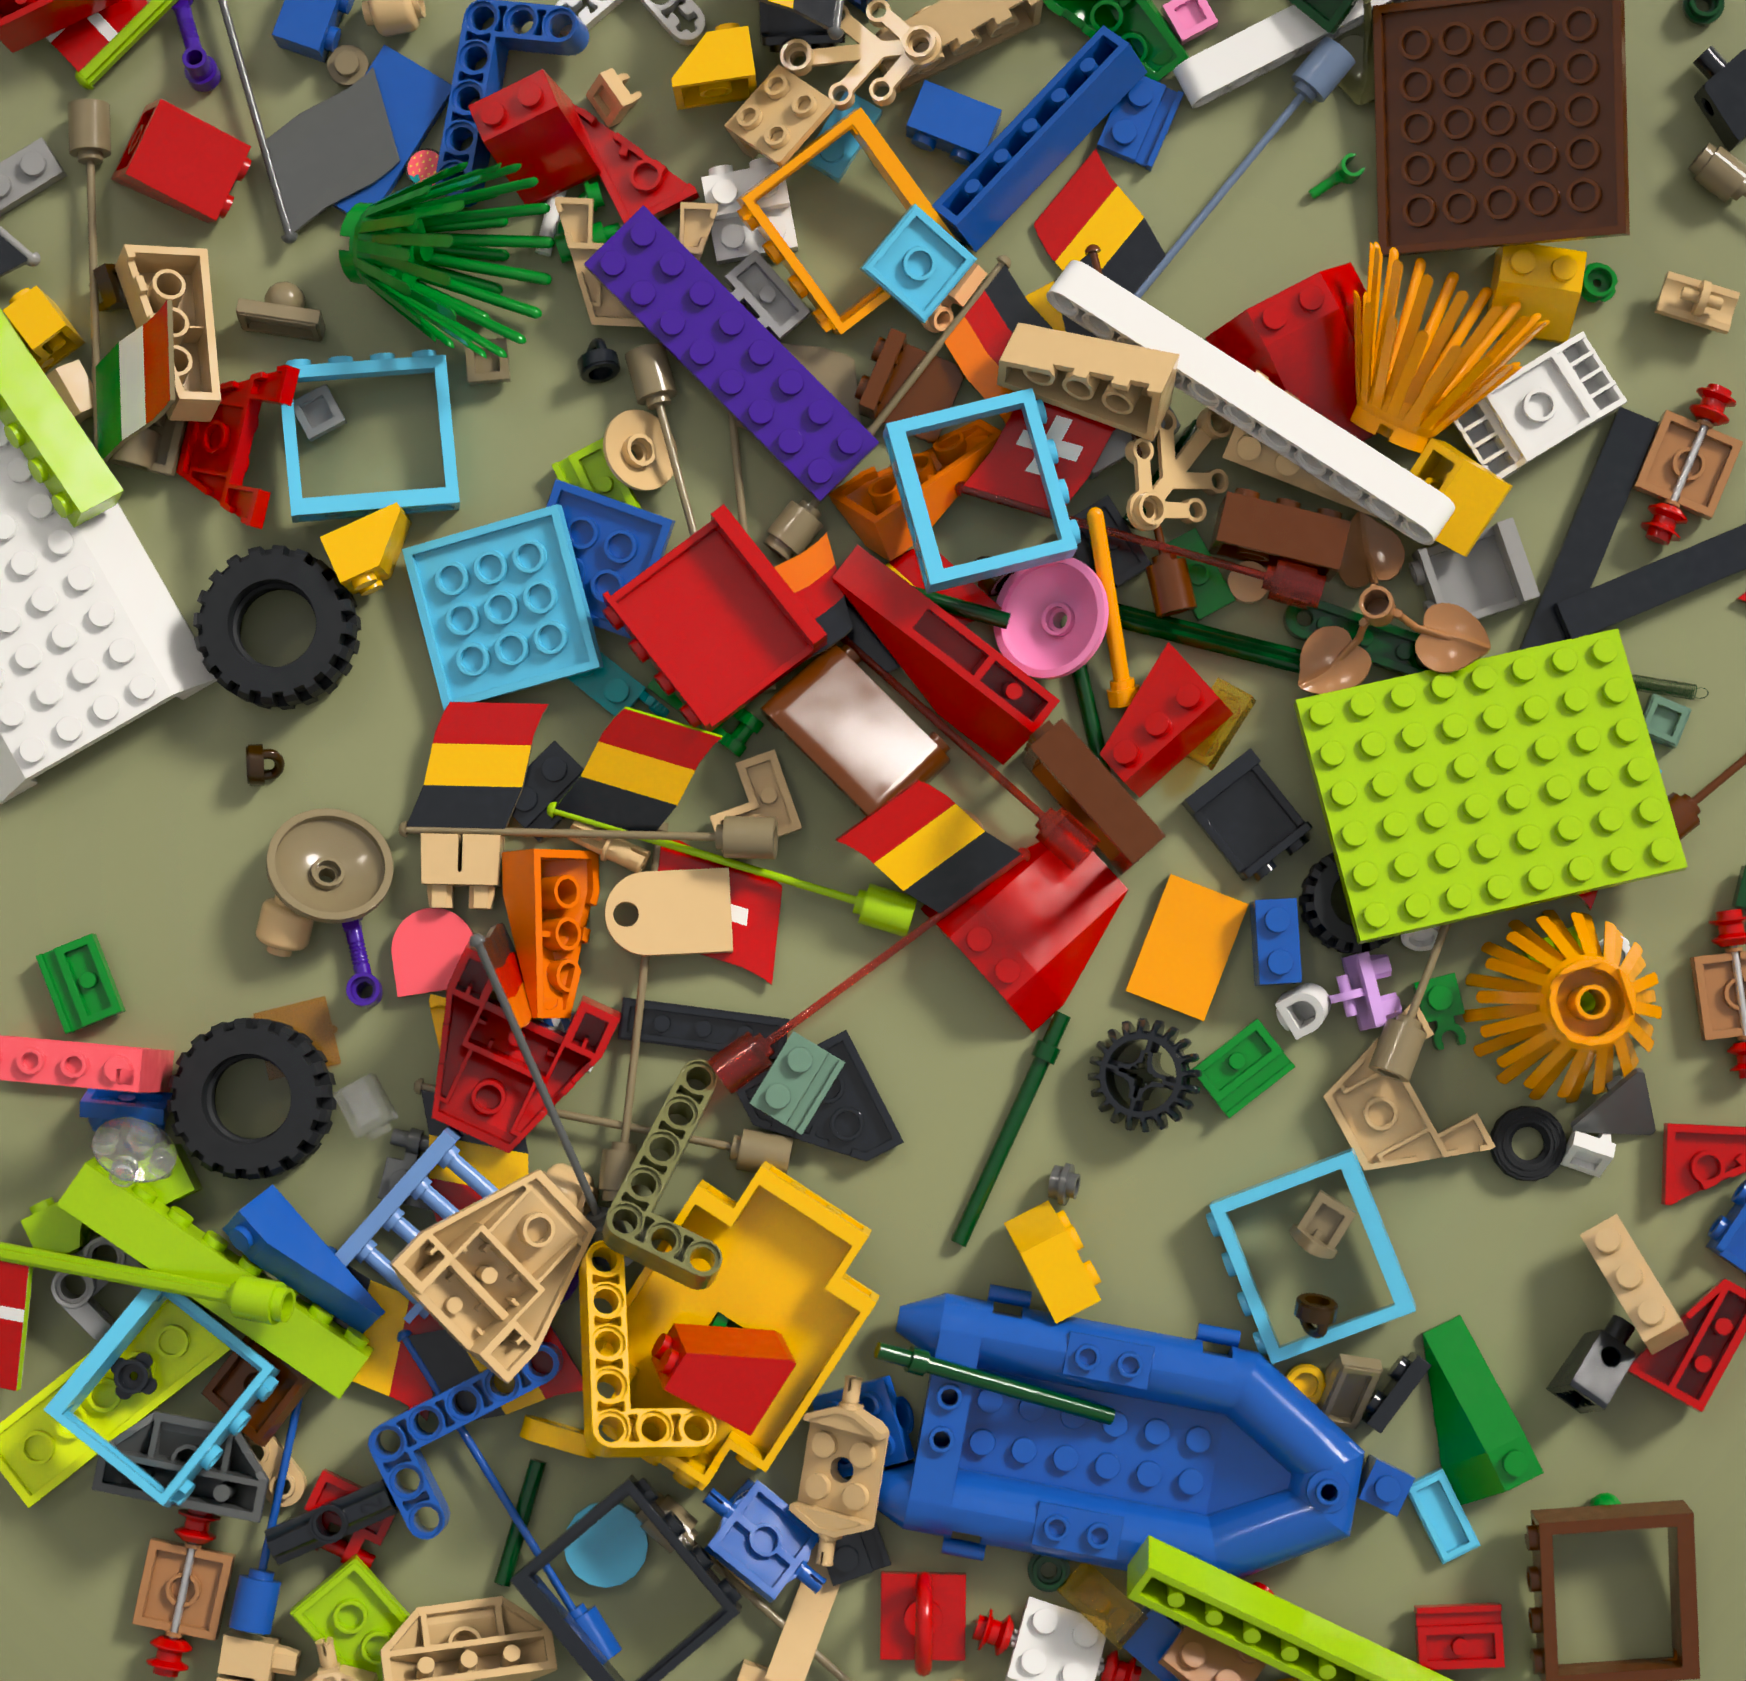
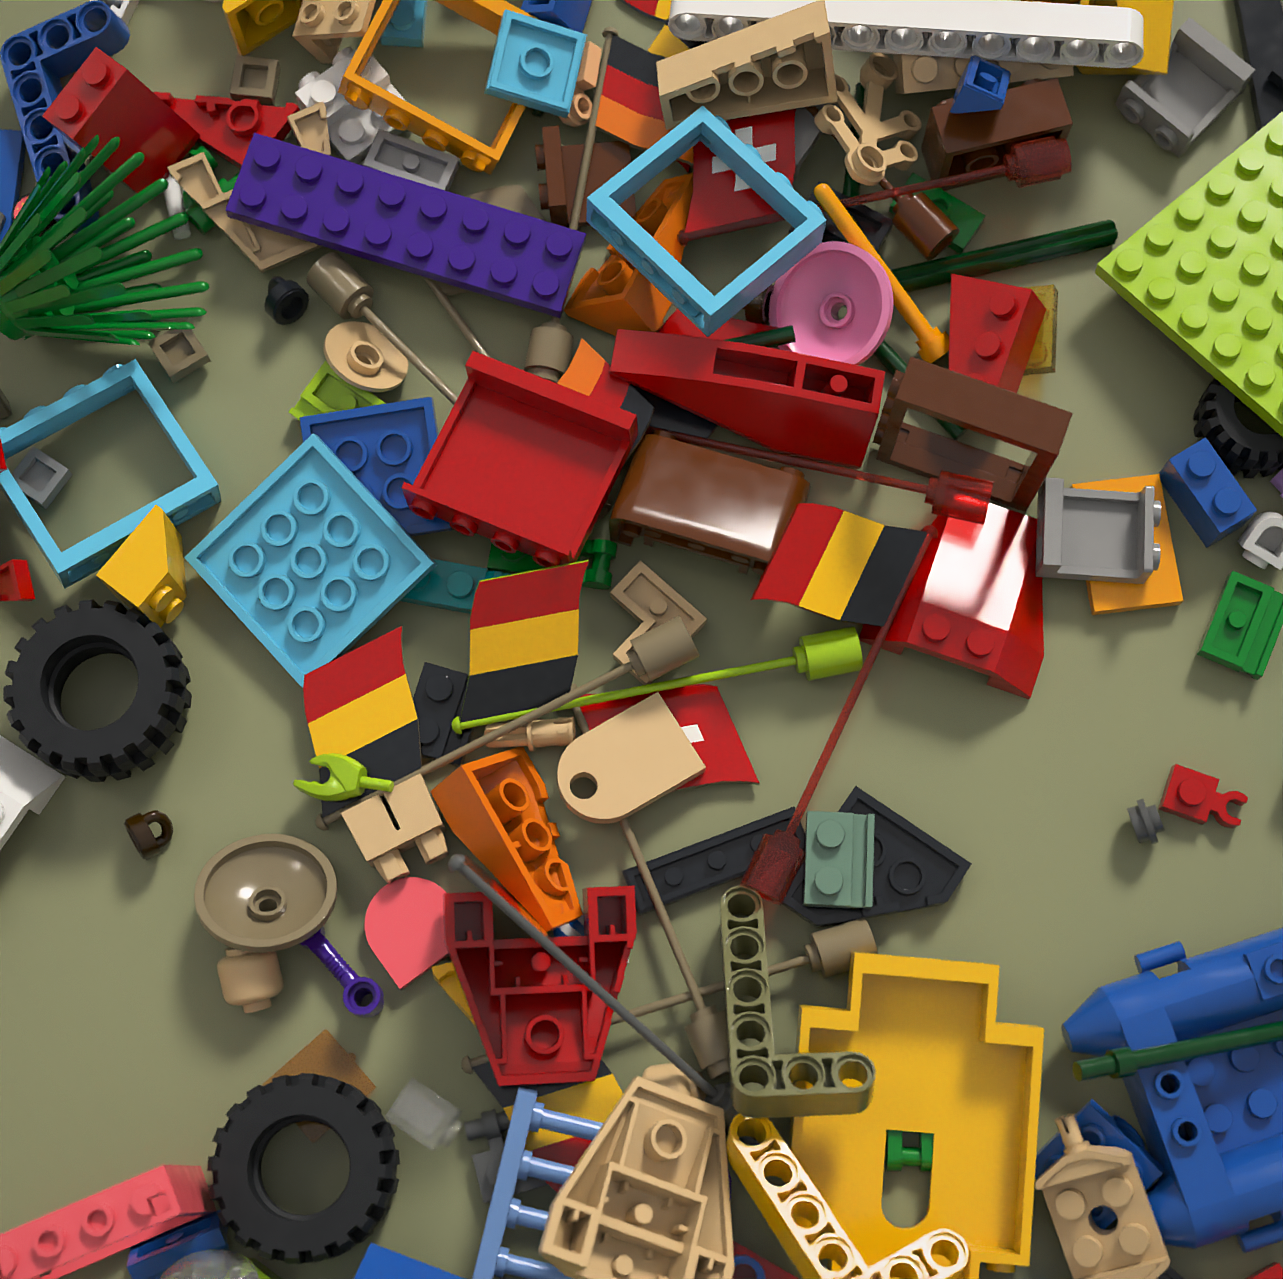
camera: 30 degrees left, 10 degrees down
(80, 983) = (69, 1147): green plate -> none
(438, 808) = (346, 779): none -> lime hand
(611, 96) = (175, 69): tan tile -> none
(675, 143) = (255, 79): none -> dark tan plate
(724, 1370) = (934, 1179): red slope -> none
(1045, 1054) = (1054, 710): dark green bar -> none
(1050, 1254) = (1185, 894): yellow brick -> none
(1119, 1183) = (1195, 797): none -> red plate
(1138, 1093) = (1152, 639): black gear -> none
(1161, 928) = (1096, 533): none -> light grey panel
(1246, 588) = (988, 196): tan tile -> none
(1247, 817) = (1114, 398): black panel -> none
(1278, 497) = (980, 87): none -> blue slope
(1374, 554) = (1199, 148): medium nougat plant -> none
(1387, 645) = (1116, 190): dark green plate -> none

